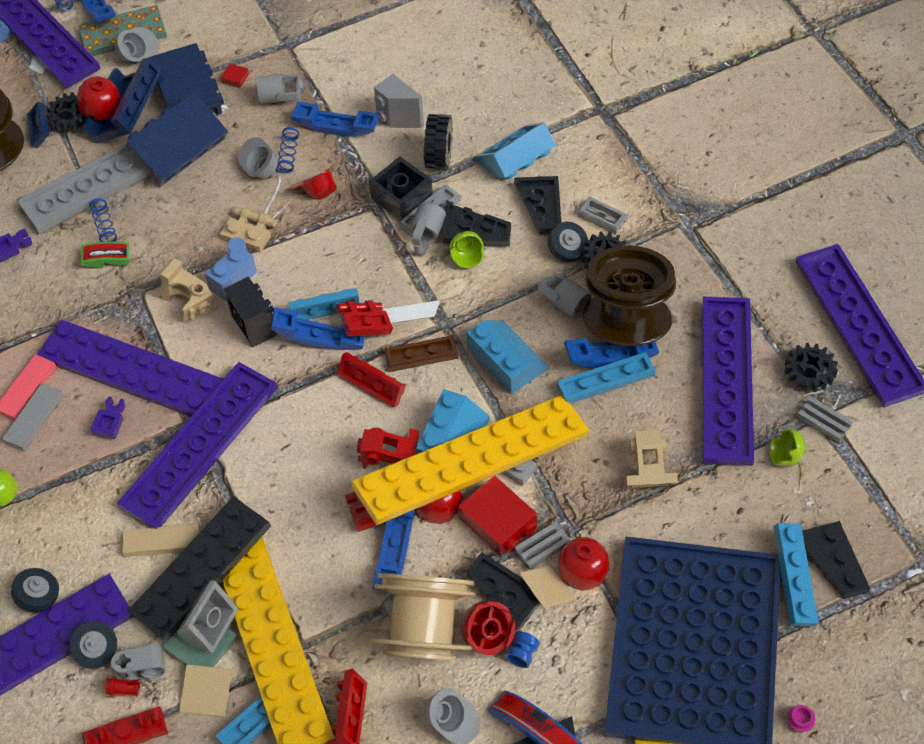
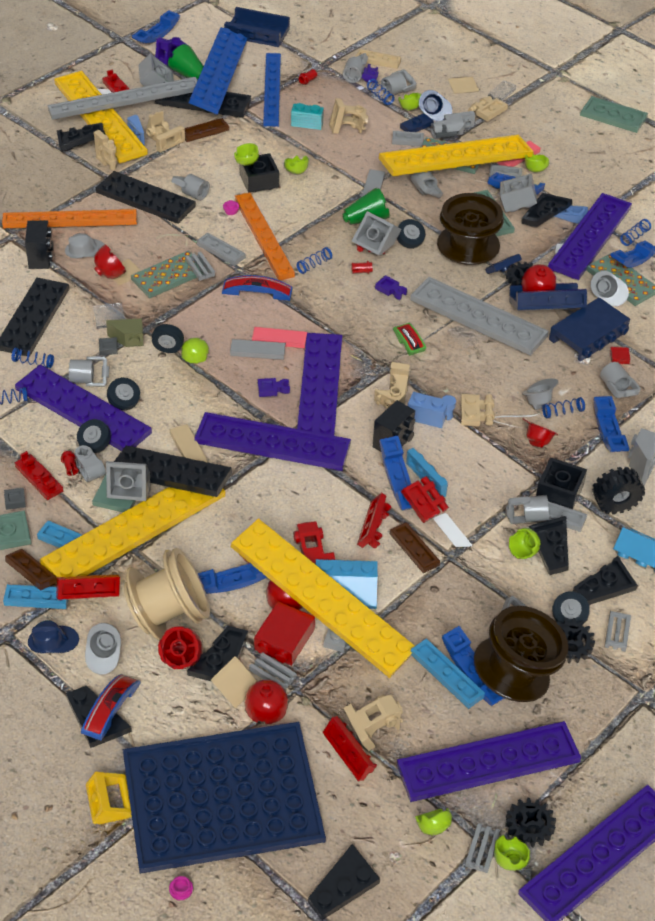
camera: 65 degrees right, 10 degrees down
(107, 220) = (426, 331): blue piece -> none
(177, 138) = (529, 337): dark blue panel -> none
(205, 690) = (82, 507): tan sticker -> none
(504, 354) = (438, 598): dark azure slope -> none
(522, 649) = (174, 679): blue wheel -> none
(674, 499) = (348, 749): none -> red plate
(795, 575) = (311, 852): dark azure plate -> none
(843, 395) = (511, 853): none -> lime hair

